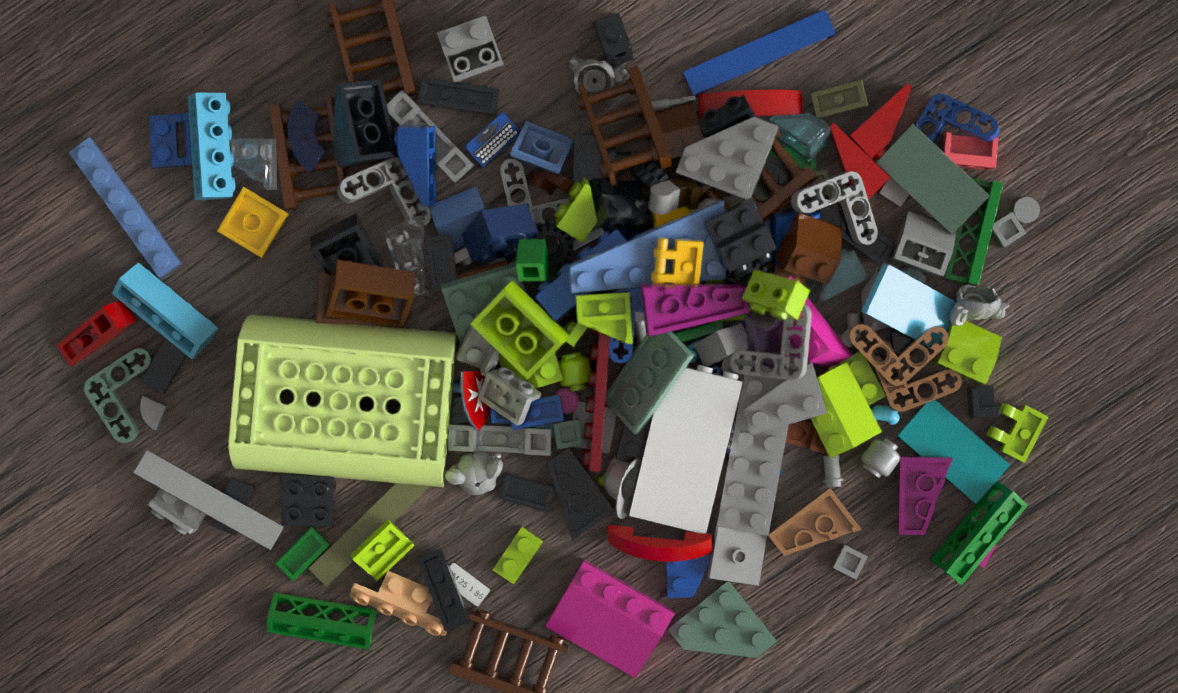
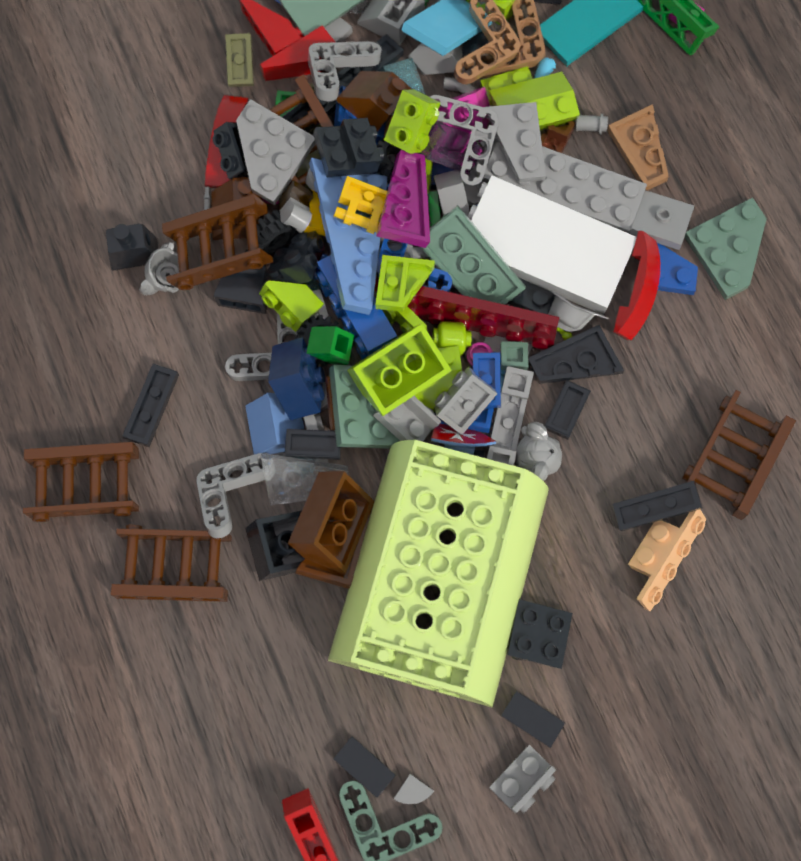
camera: 70 degrees left, 15 degrees down
(125, 207) = (182, 779): medium blue plate -> none
(165, 140) = (123, 720): blue plate -> none
(165, 310) = (304, 752): medium azure brick -> none
(208, 500) = (521, 743): light grey tile -> none
(210, 146) = (138, 668): medium azure brick -> none
(252, 222) = (230, 639): yellow plate -> none
(256, 159) = (163, 619): clear wing -> none
(302, 136) = (152, 565): clear blue tile -> none
(302, 554) = (596, 653): green tile -> none
(339, 632) = (679, 645): green fence -> none
(362, 124) = (155, 499): black slope -> none
(382, 550) = (605, 564): lime plate -> none
(389, 507) = (582, 582): olive tile -> none
(418, 155) = (196, 452): blue slope -> none
(448, 156) = (185, 442): light grey slope -> none
(468, 585) = (657, 481): white sticker -> none
(470, 49) = (105, 382): light grey slope -> none
(492, 139) = (202, 380): slope -> none
(517, 555) = (630, 429): lime plate -> none
(541, 148) = (224, 334): medium blue slope -> none
(550, 181) = (256, 328): copper slope -> none
(610, 618) = (709, 348): dark pink slope -> none
(759, 52) = (179, 126): blue tile -> none
(802, 133) = (265, 89): clear light blue slope -> none
(850, 561) = (682, 123): light grey tile -> none
(880, 457) = (586, 77): light grey head -> none
(919, 488) = (621, 51): magenta wing -> none

